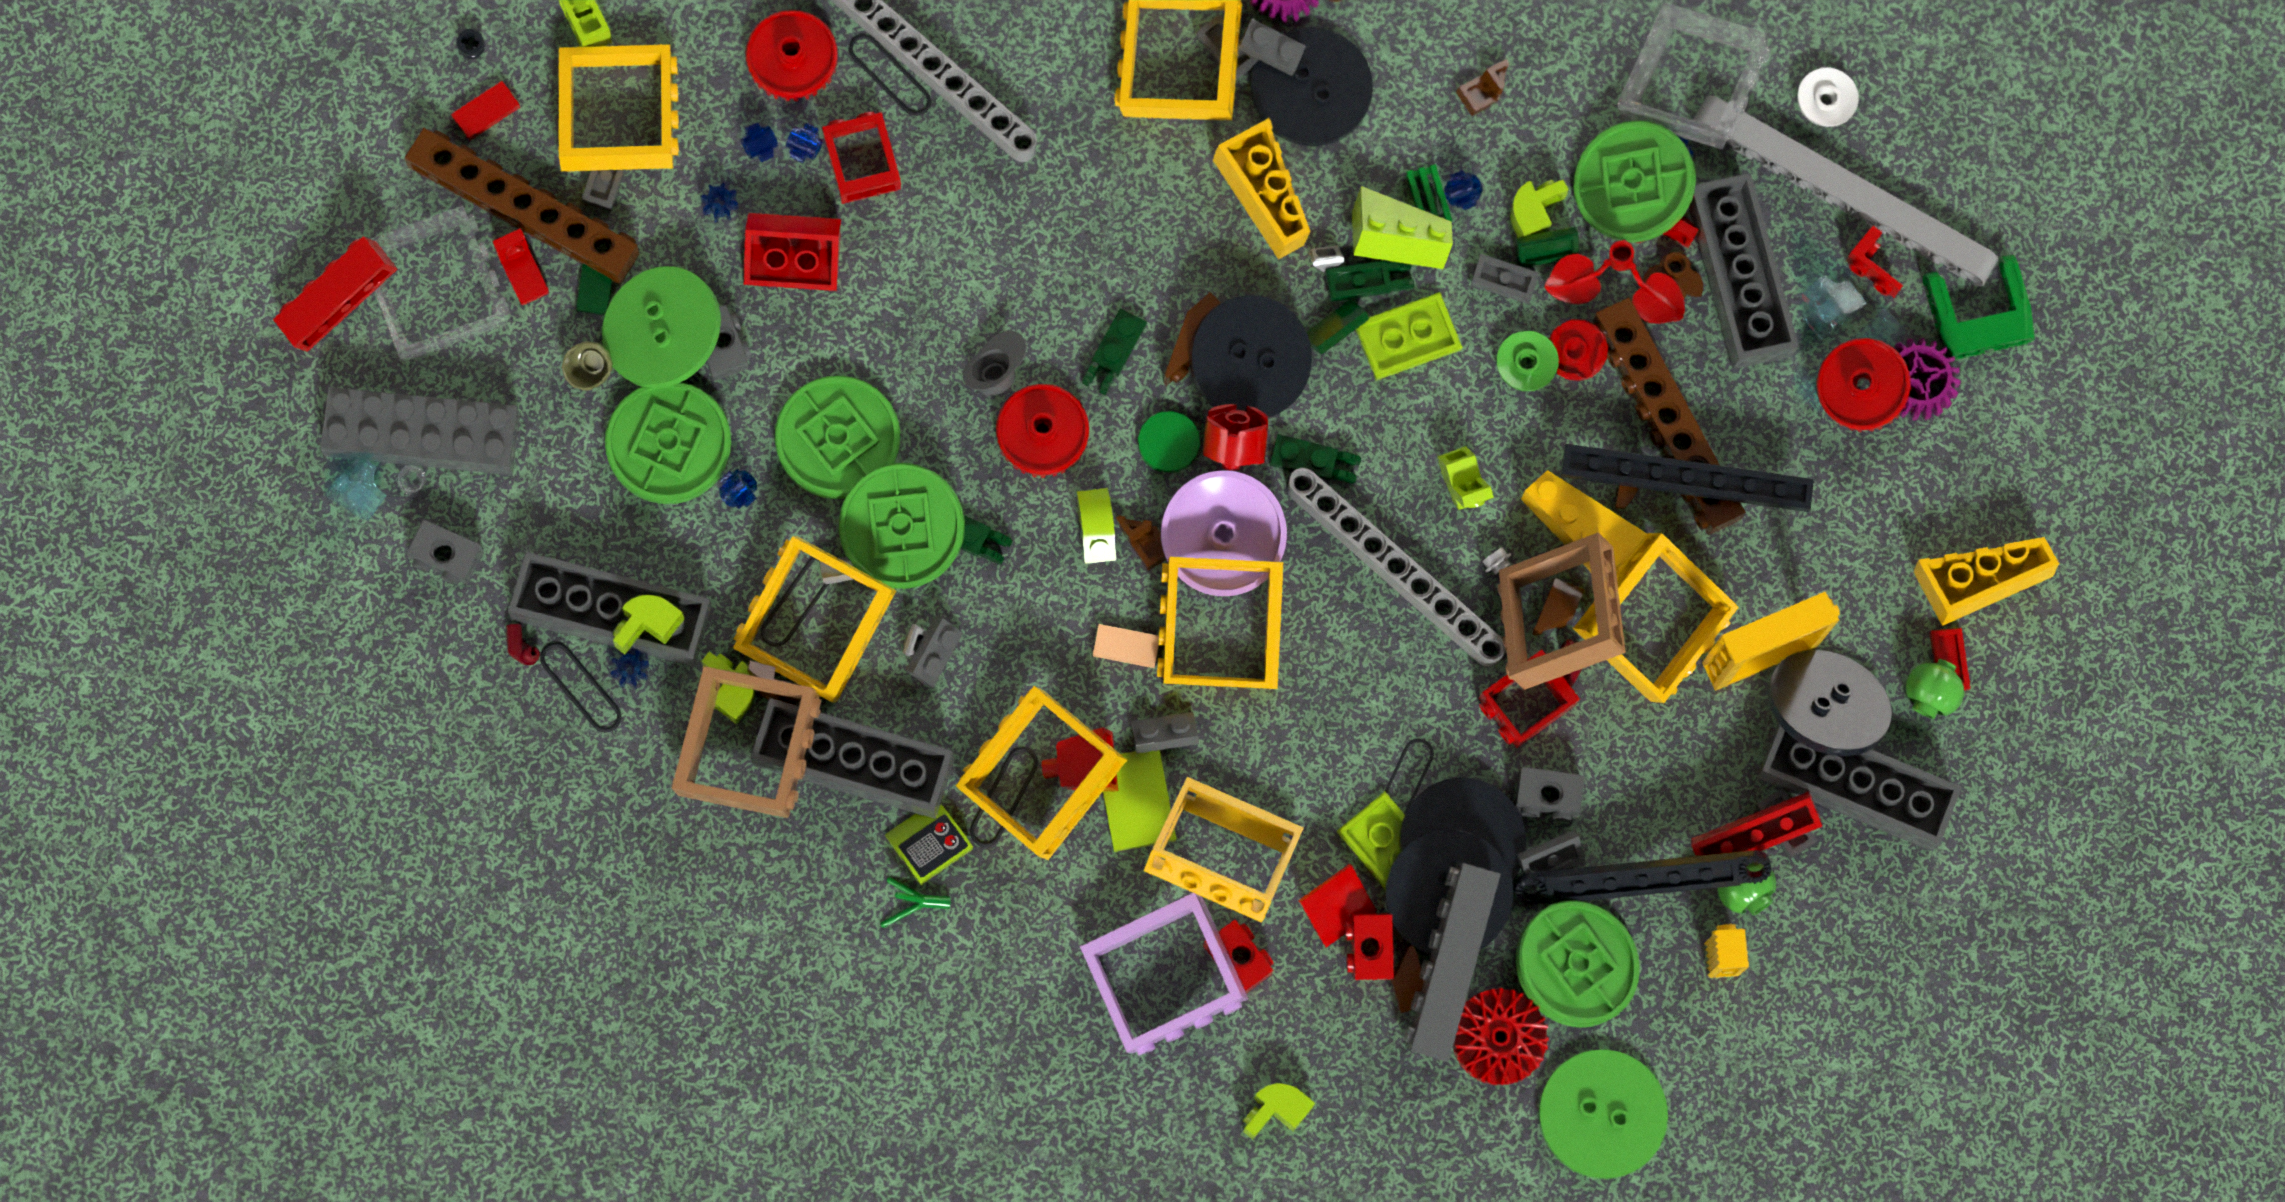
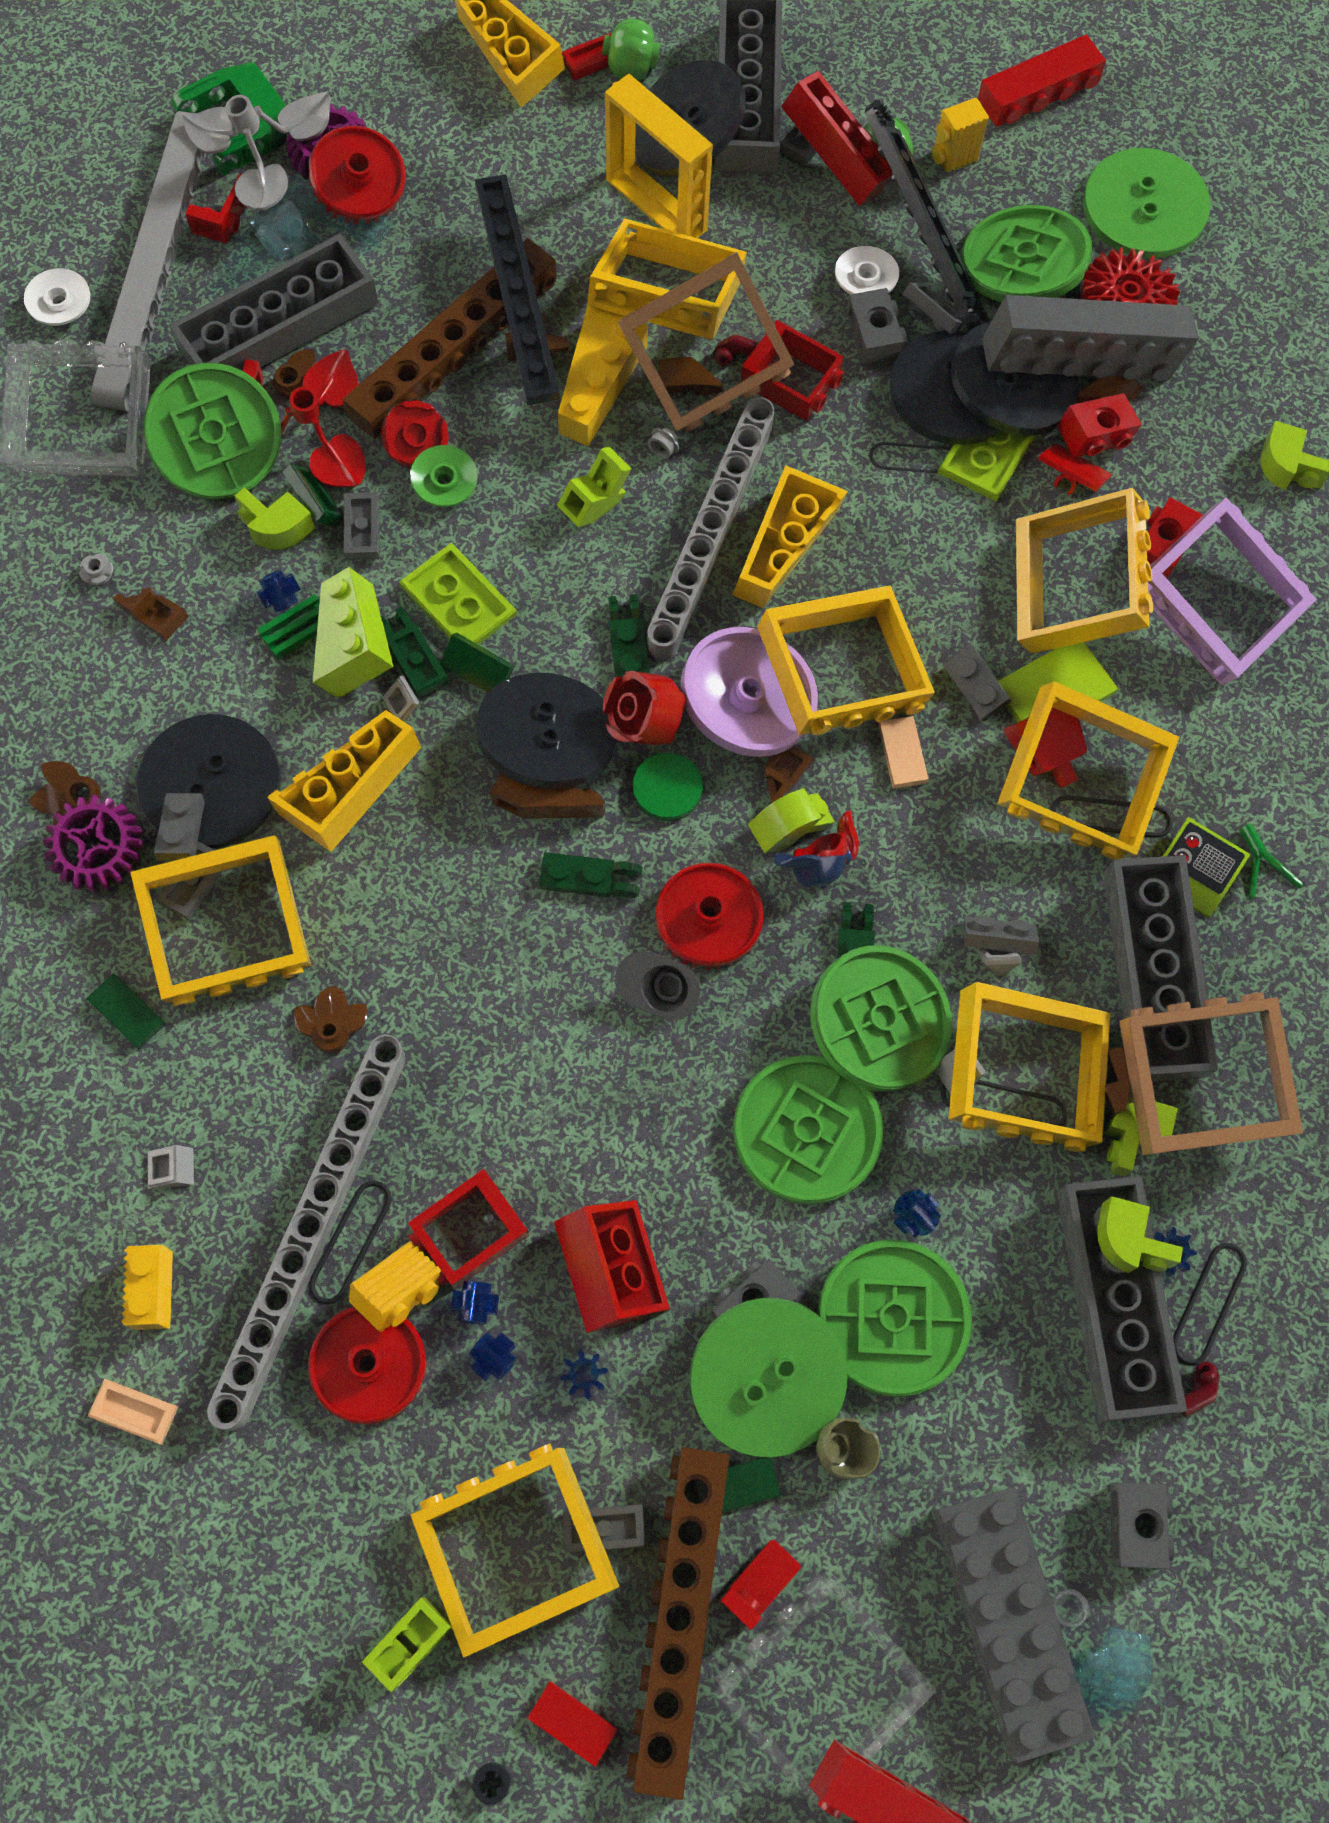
camera: 105 degrees left, 5 degrees down
(837, 88) = (395, 1287): none -> yellow brick
(1053, 534) = (825, 857): none -> hair
(1074, 117) = (330, 1014): none -> reddish brown plate
(1362, 622) = (788, 530): none -> yellow wedge
(1541, 62) = (98, 576): none -> light grey plate
(1624, 803) = (866, 270): none -> white dish
(1772, 1069) = (1041, 80): none -> red brick
(1951, 276) = (214, 127): none -> light grey plant

